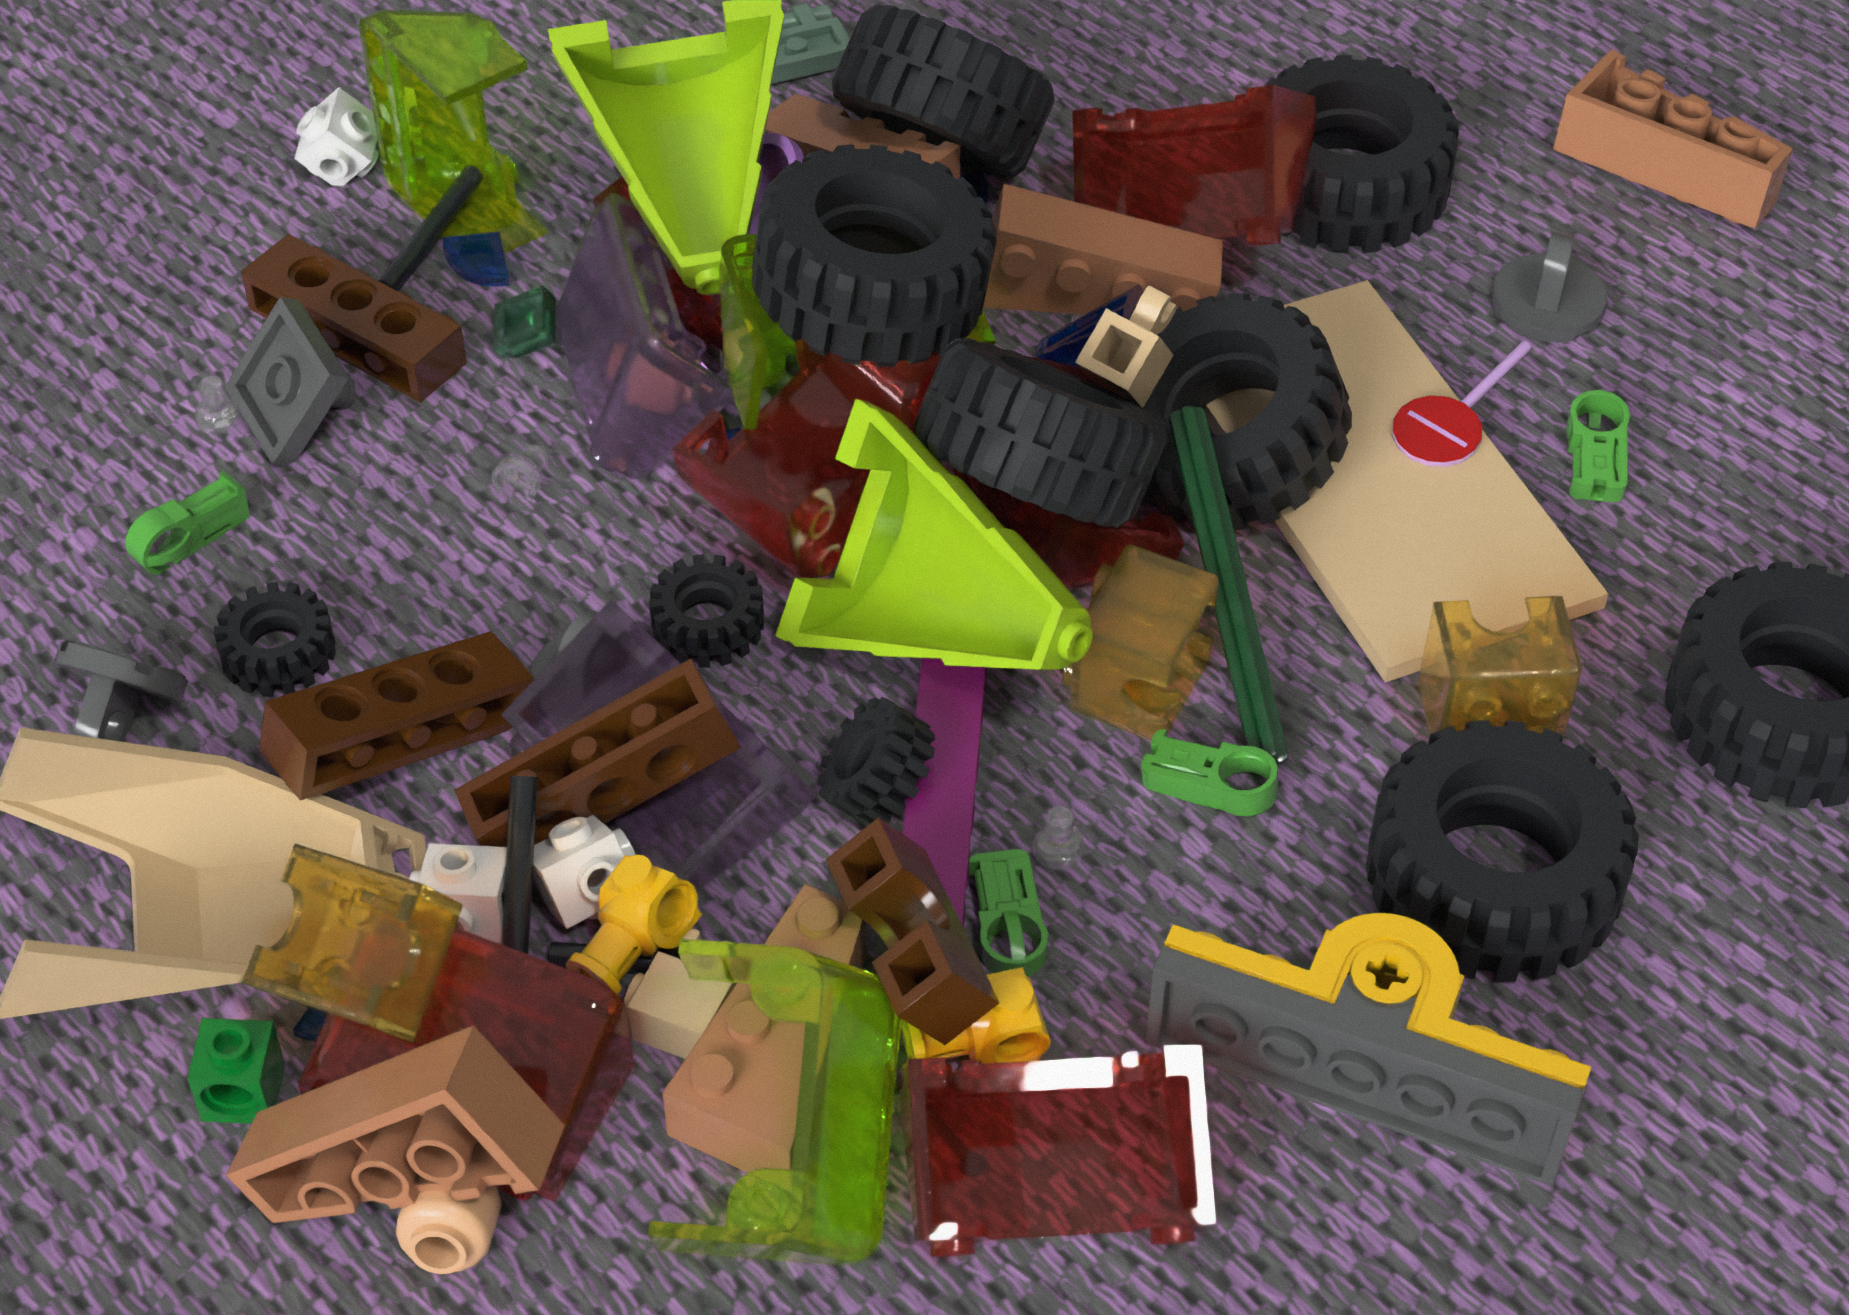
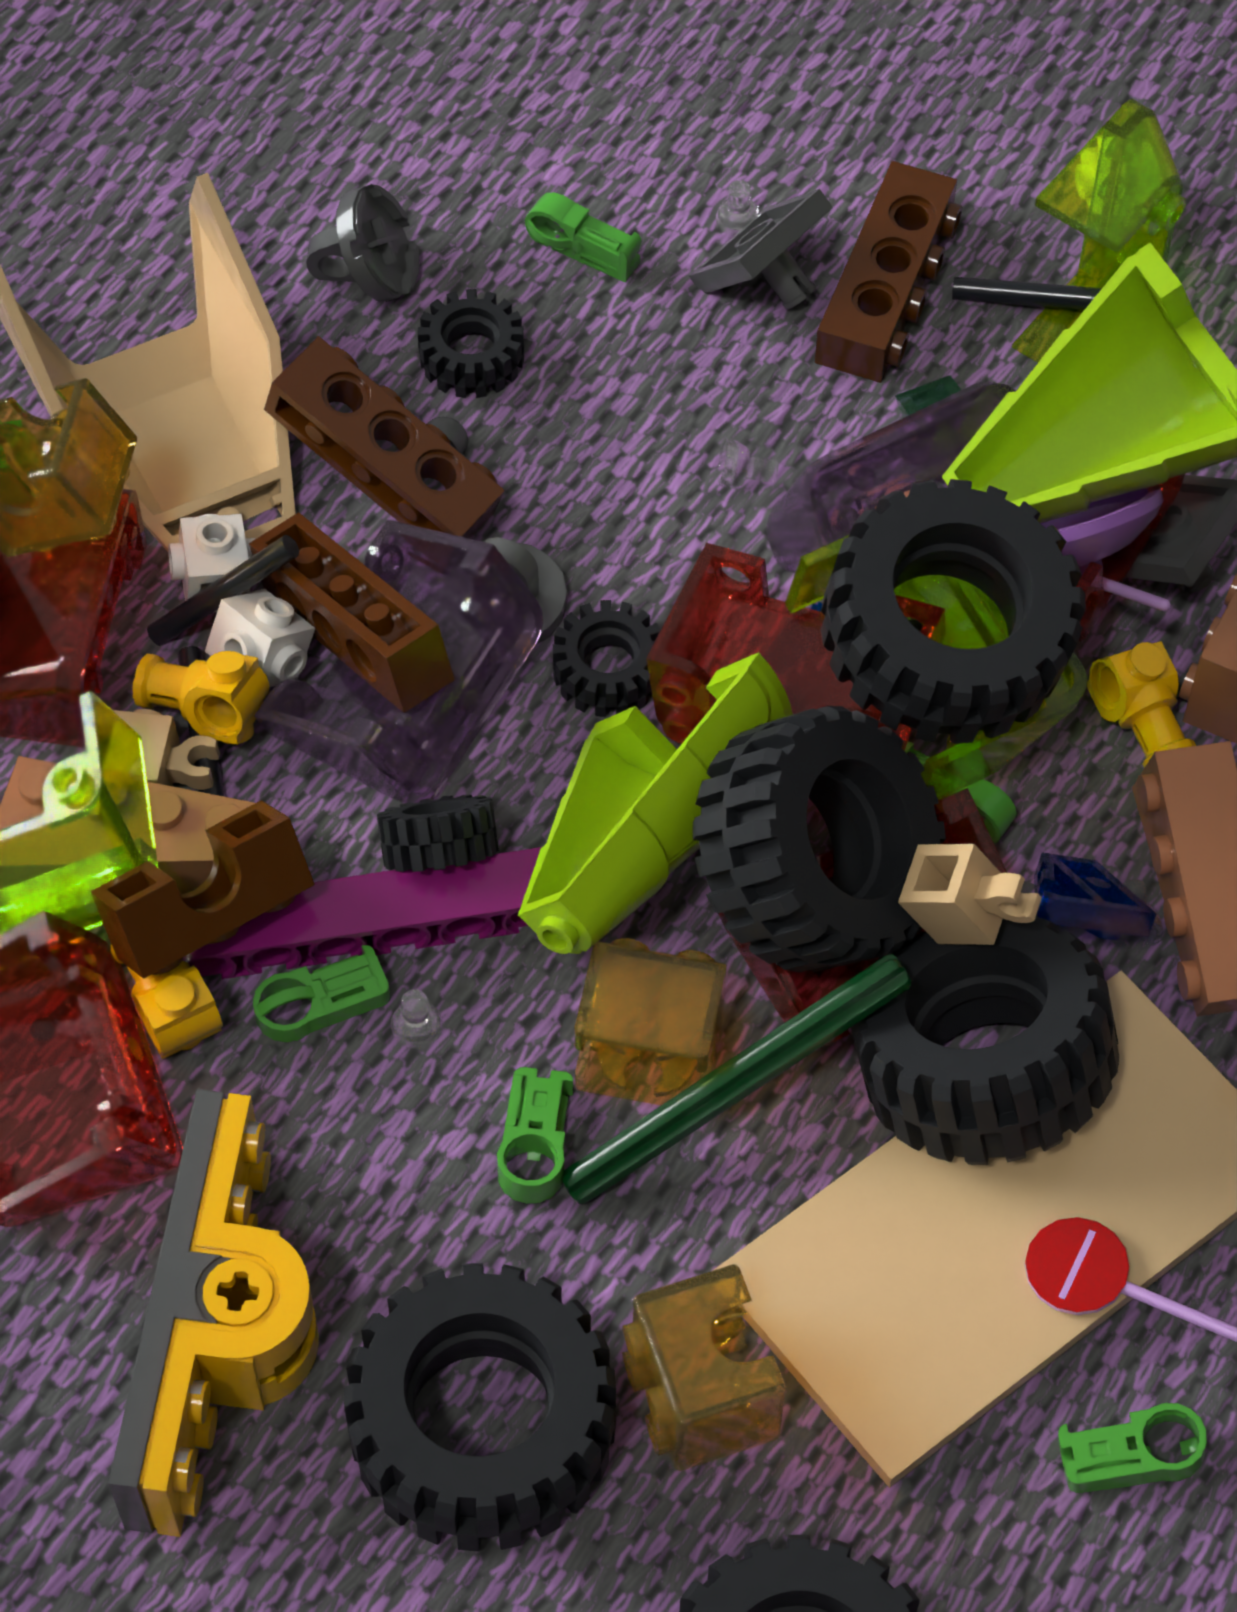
camera: 75 degrees right, 10 degrees up
(478, 258) = (1016, 345): clear blue tile -> none

